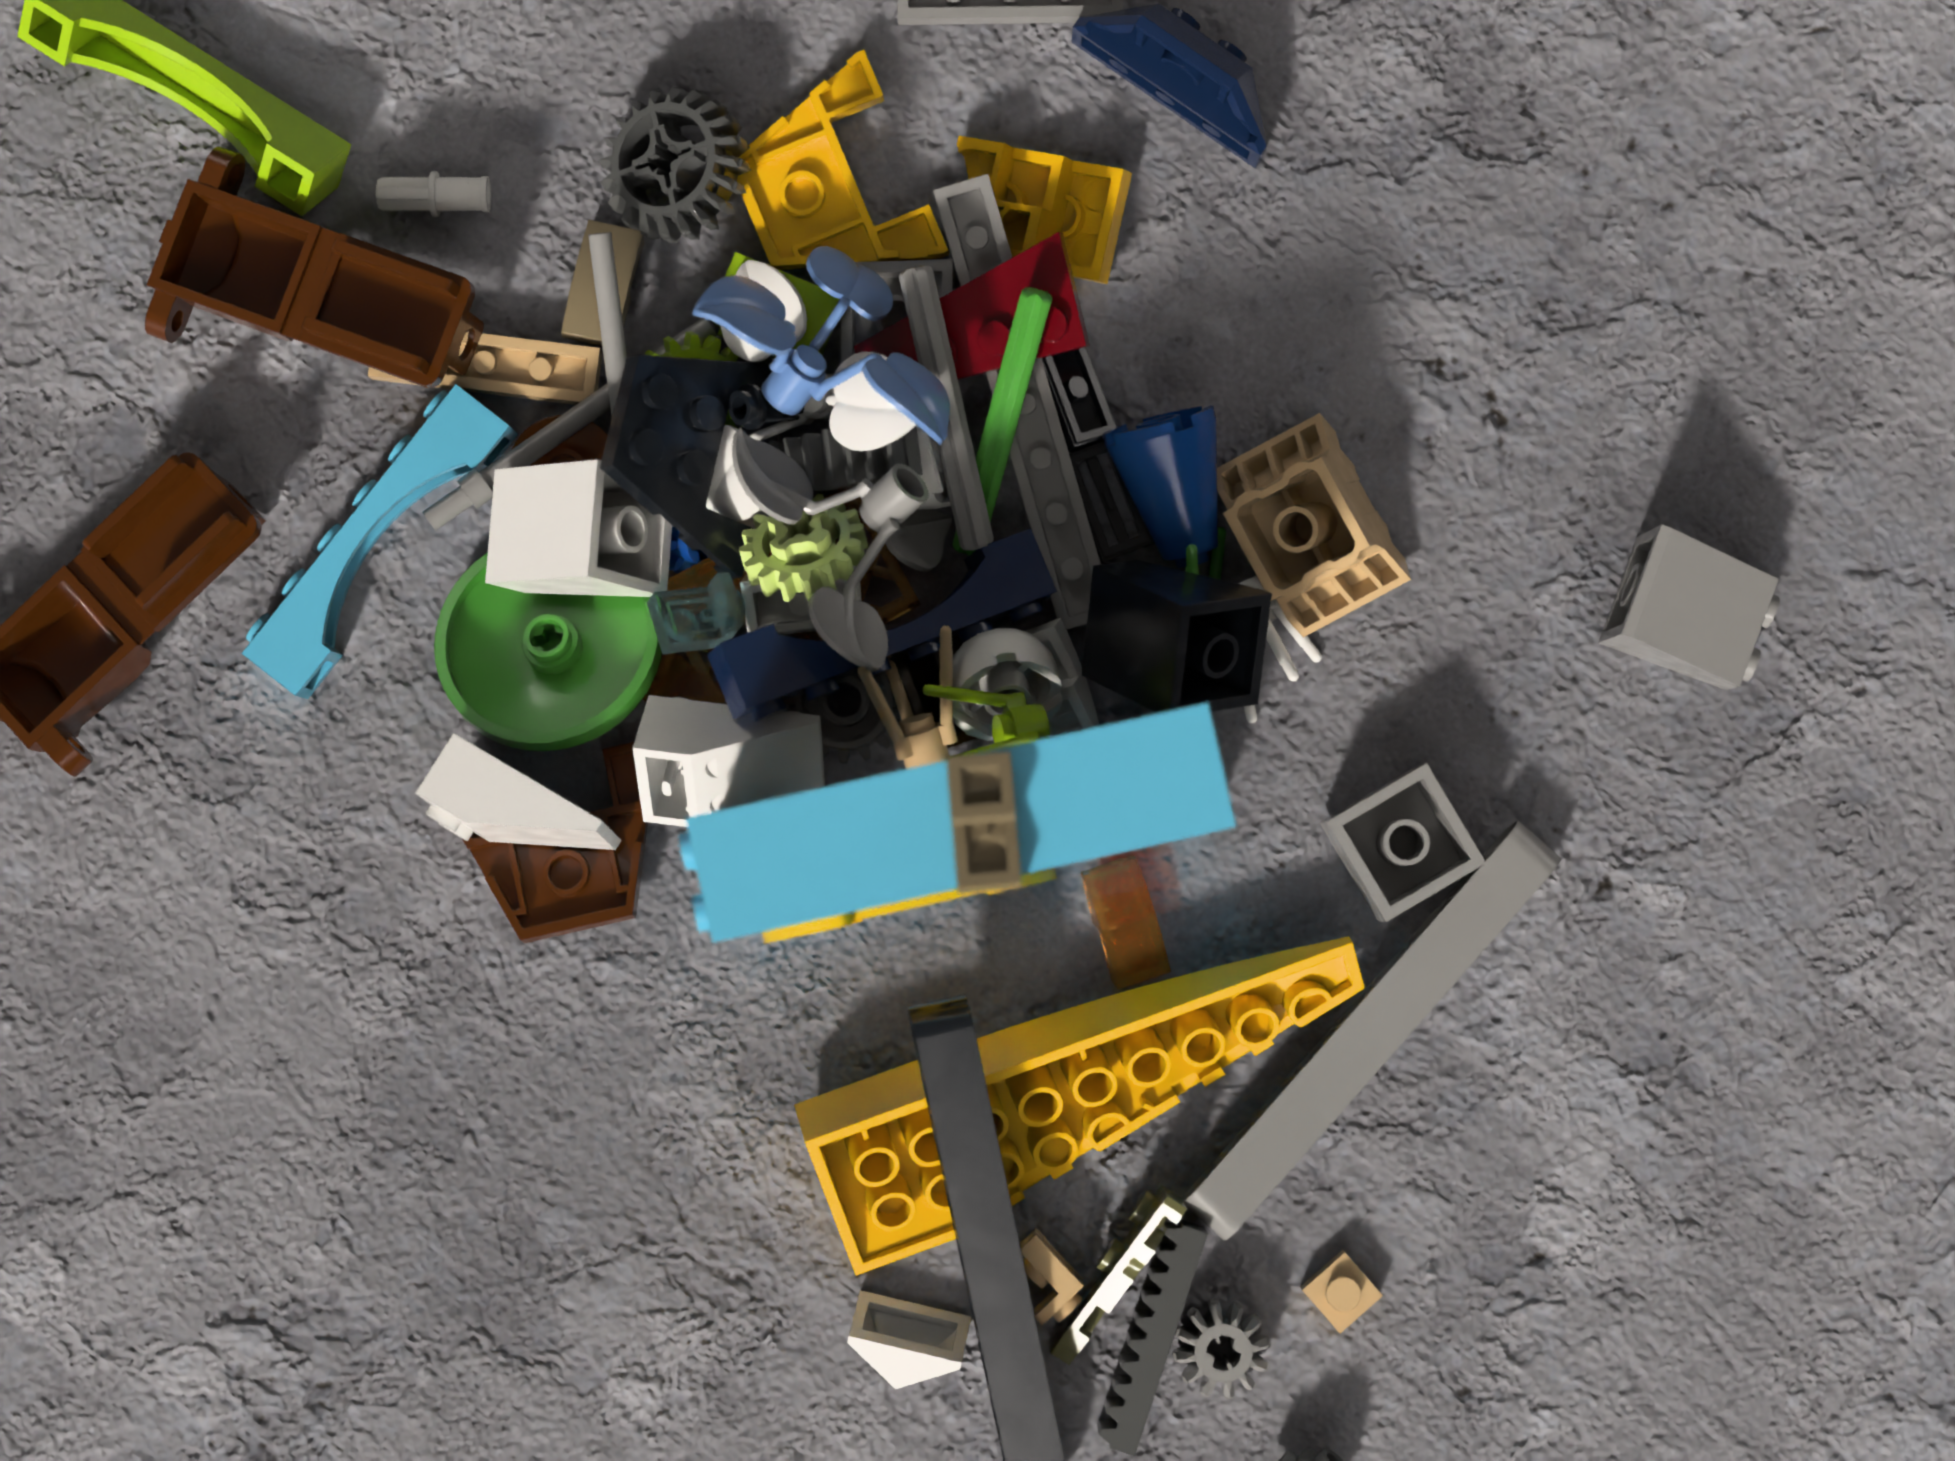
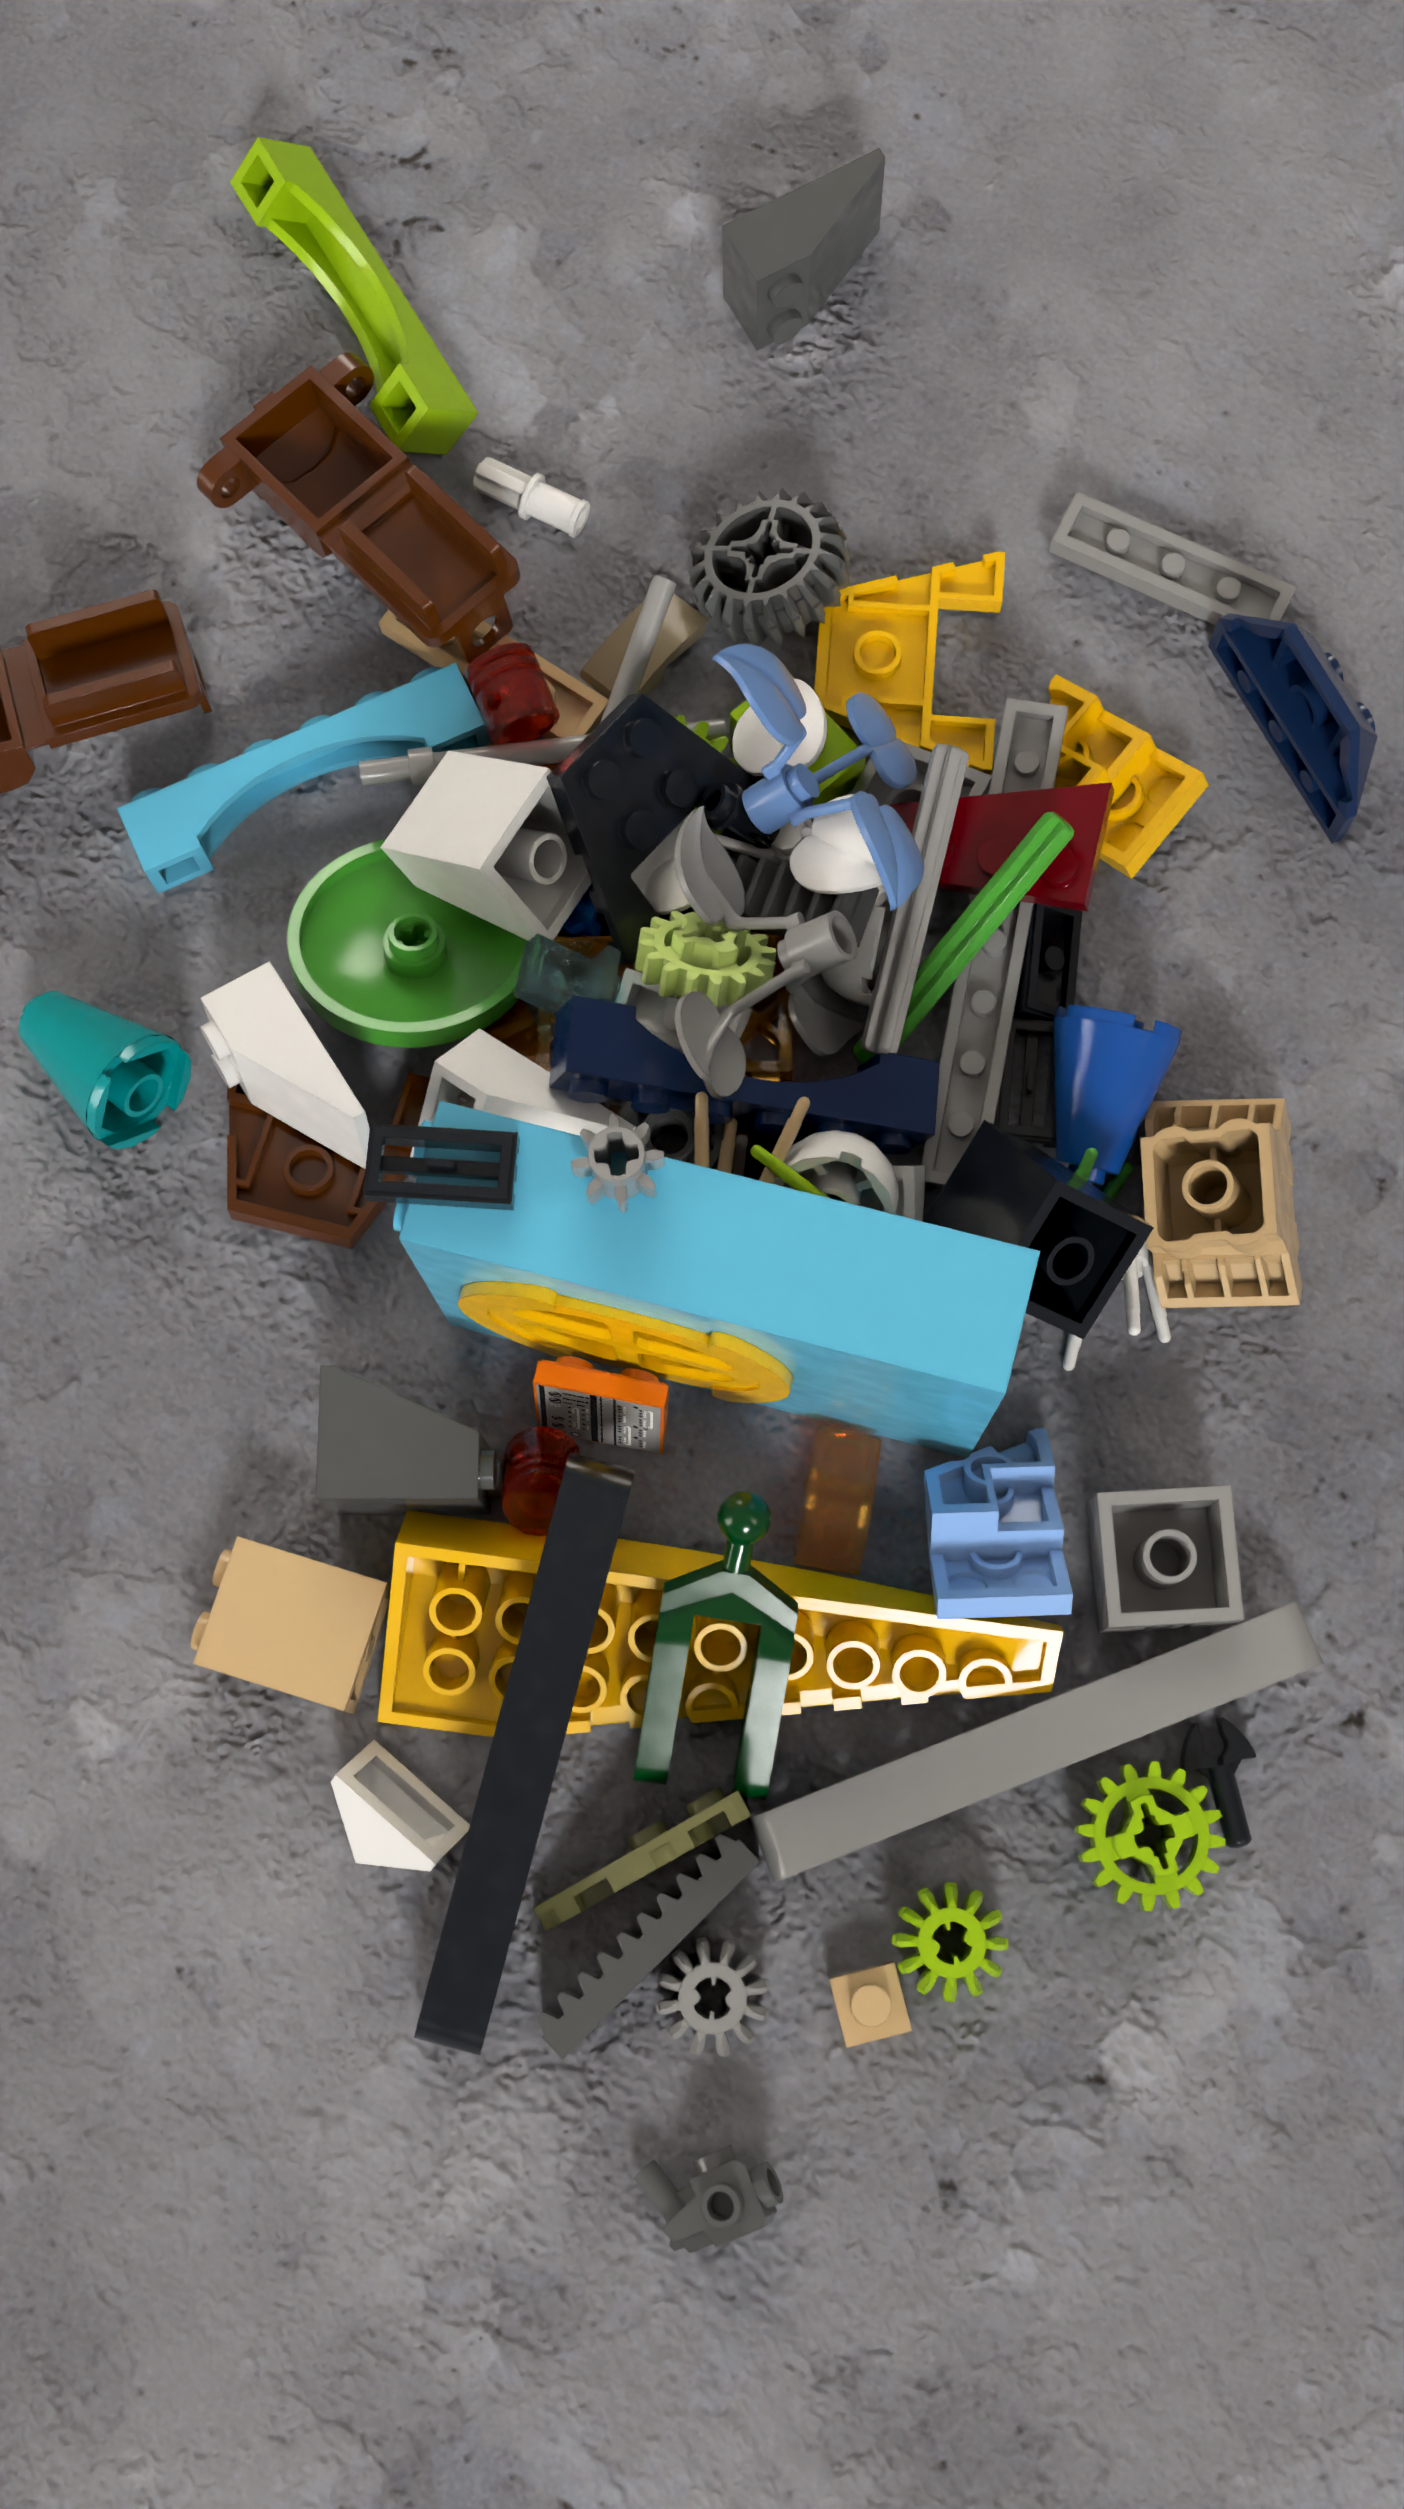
camera: 25 degrees right, 10 degrees down
(350, 872) = (105, 1066): none -> teal cone
(519, 390) = (509, 692): none -> clear red piece
(666, 893) = (439, 1194): none -> black tile
(750, 1239) = (292, 1624): none -> tan panel
(765, 1067) = (397, 1455): none -> dark grey slope
(836, 800) = (599, 1158): none -> light grey gear
(882, 1027) = (533, 1476): none -> clear red piece
(921, 942) = (602, 1405): none -> tile
(984, 822) = (742, 1253): dark tan slope -> none
(1044, 1266) = (576, 1812): tan bracket -> none
(1084, 1049) = (732, 1593): none -> dark green piece
(1264, 888) = (997, 1534): none -> light blue slope
(1364, 1231) = (970, 1934): none -> lime gear
(1510, 1040) = (1176, 1827): none -> lime gear
(1524, 984) = (1221, 1776): none -> black bar

